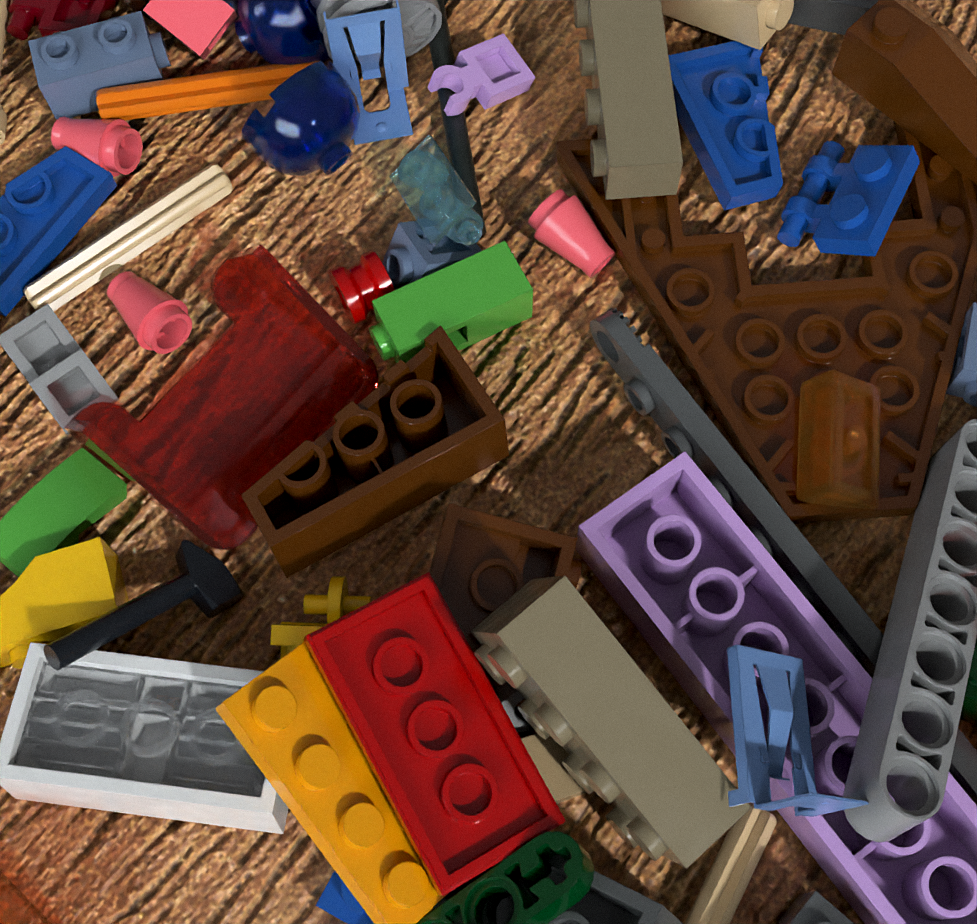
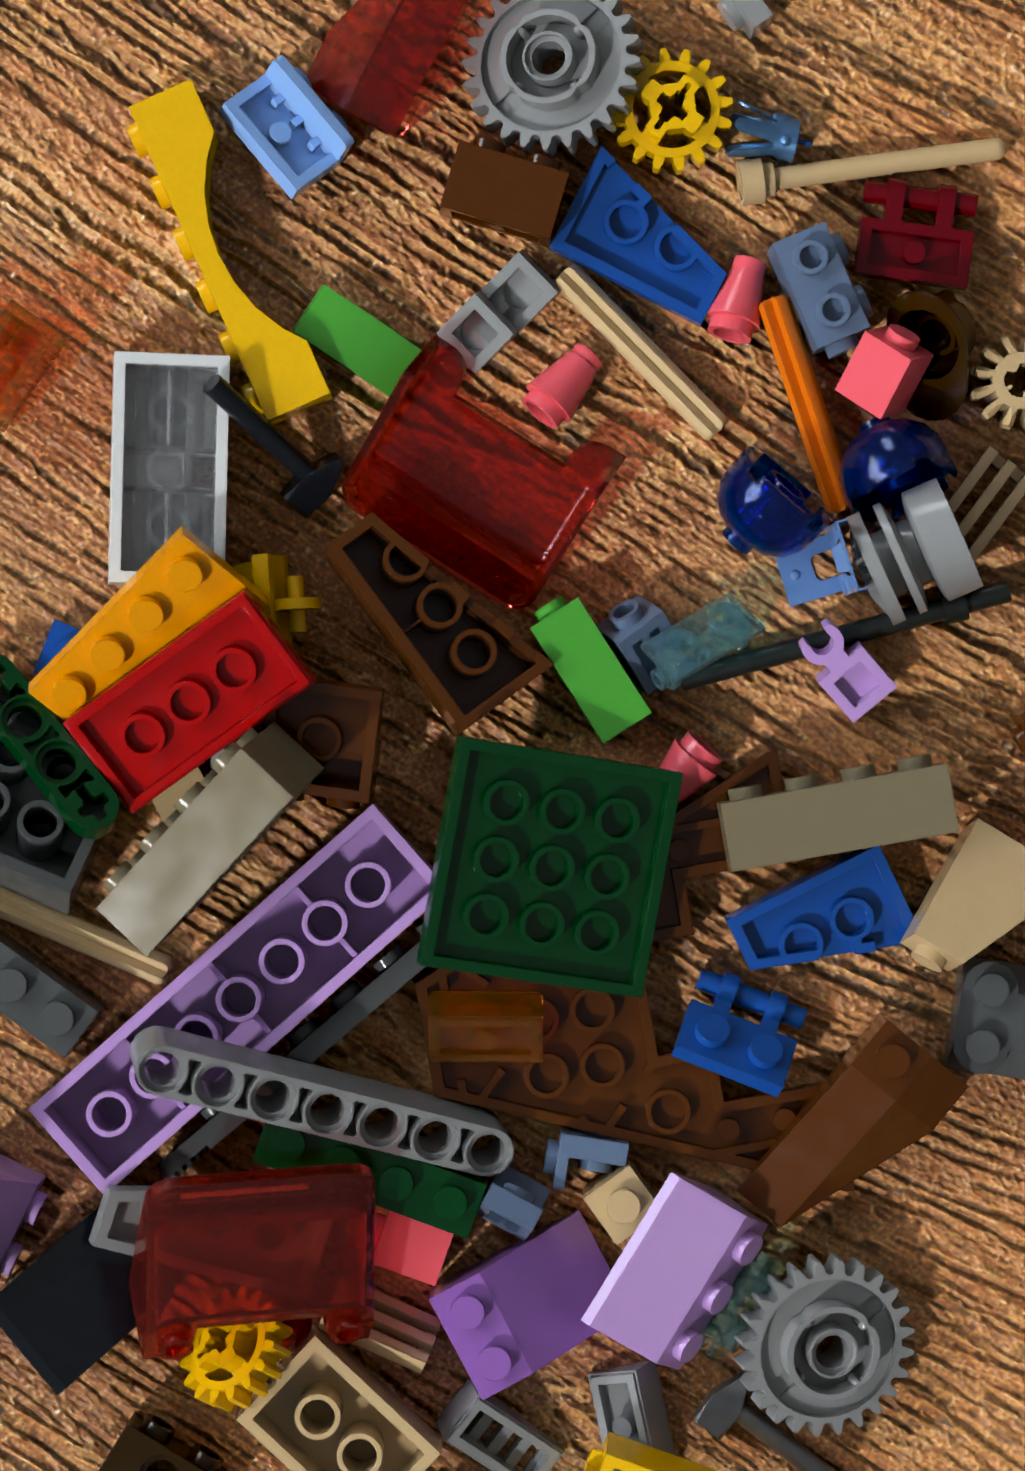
camera: 80 degrees right, 20 degrees up
(360, 285) = (604, 583): red wheel -> none
(665, 348) = (549, 867): none -> dark green plate
(787, 715) = (221, 981): medium blue piece -> none

